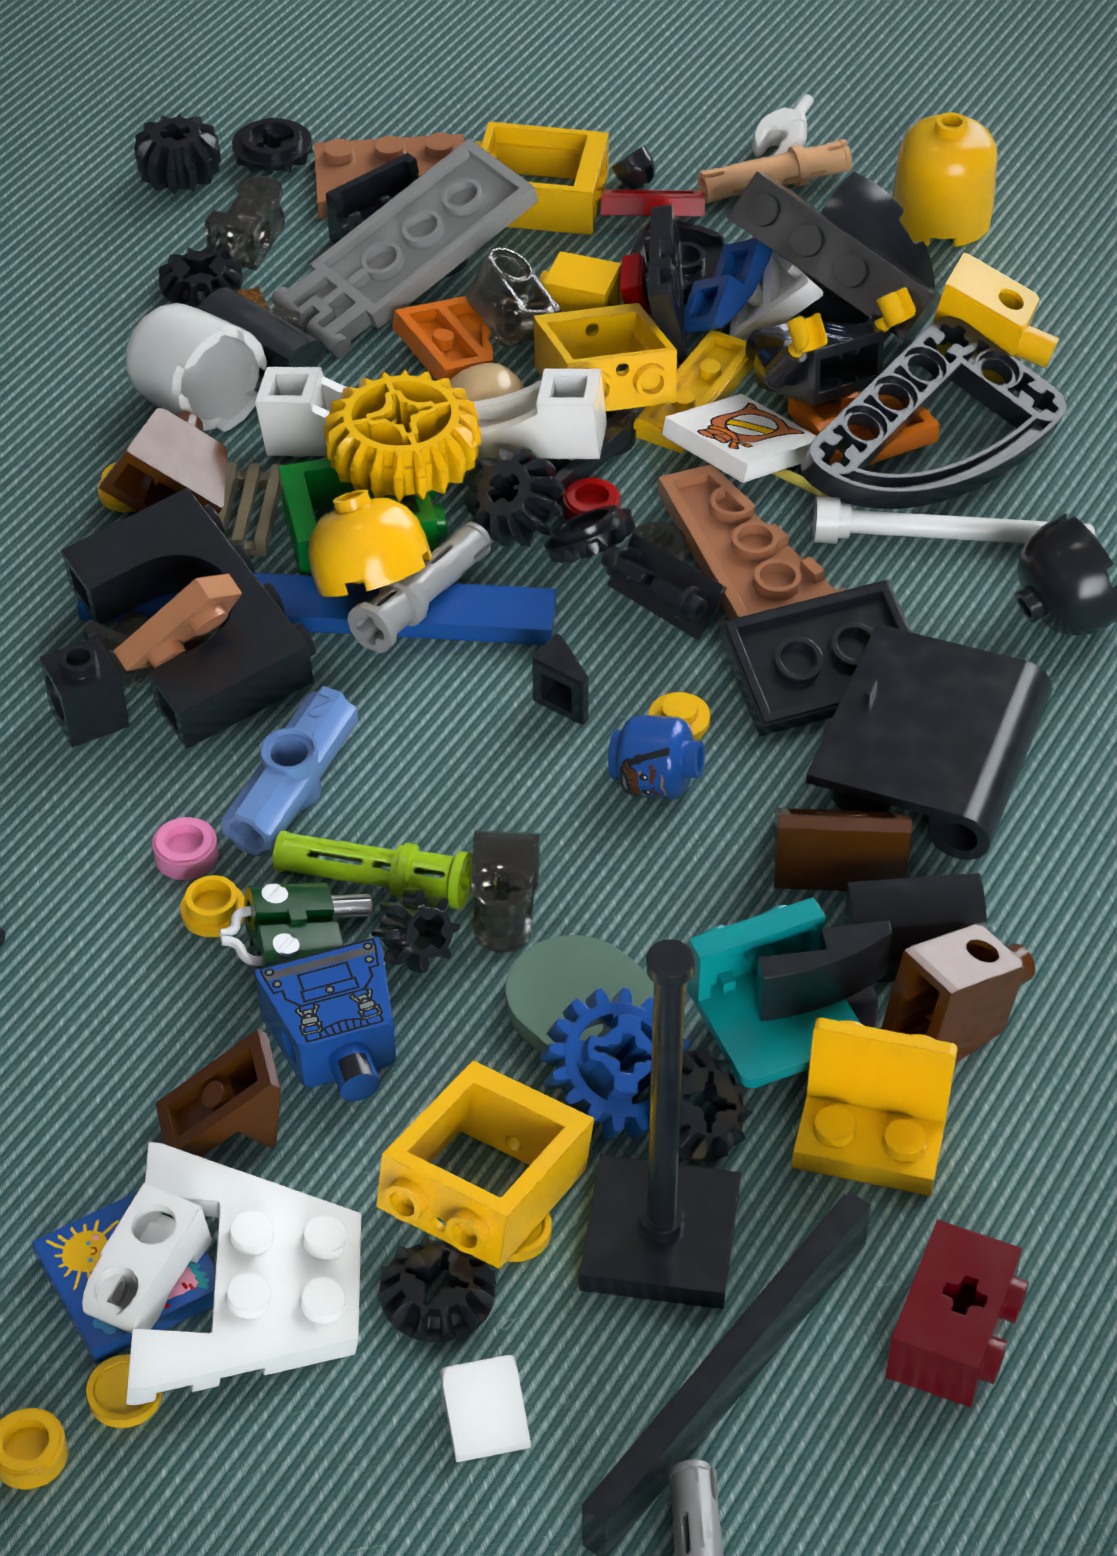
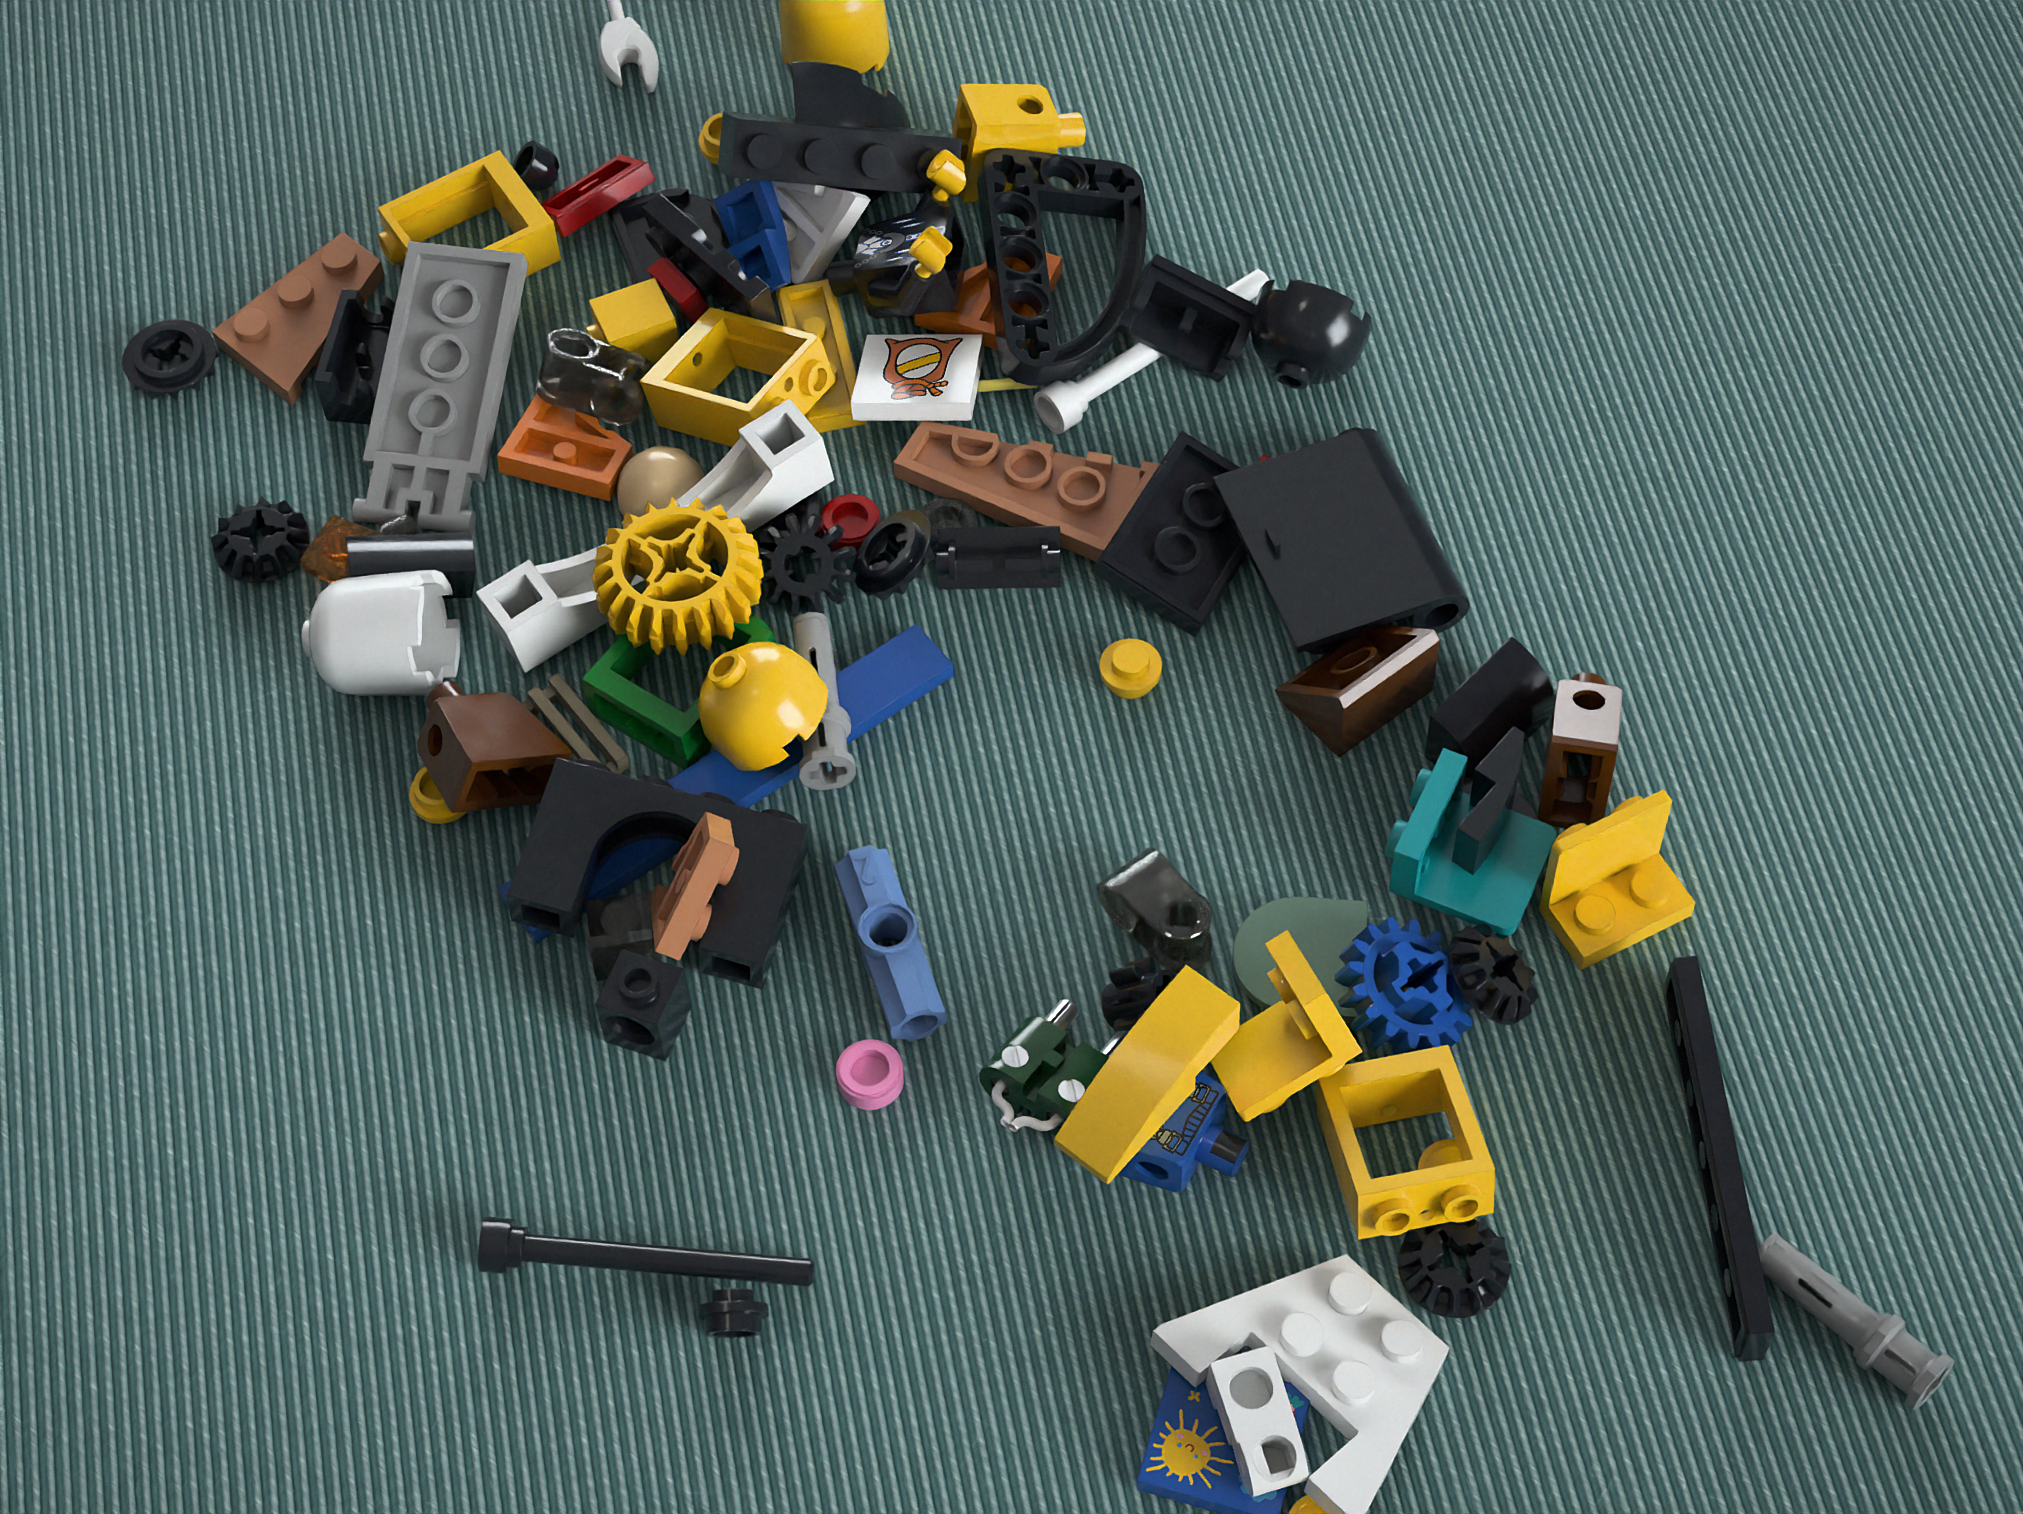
camera: 40 degrees left, 10 degrees up
(177, 153) = (96, 427): black gear -> none
(210, 904) = (955, 1106): yellow plate -> none
(225, 1097) = (1163, 1251): reddish brown slope -> none
(250, 223) = (251, 453): clear smoke leg -> none
(334, 959) = (1149, 1074): none -> yellow slope
(406, 865) = (1069, 949): lime pin -> none
(484, 1408) = (1586, 1324): white slope -> none
(503, 1010) = (1287, 1042): none -> yellow bracket
(560, 681) = (1016, 702): black slope -> none
(655, 756) = (1156, 715): blue head -> none
(657, 1223) = (1554, 1082): black tile -> none
(792, 167) = (675, 77): light nougat pin -> none
(954, 1314) = (1812, 990): dark red brick -> none
(981, 510) = (1187, 318): none -> black hinge

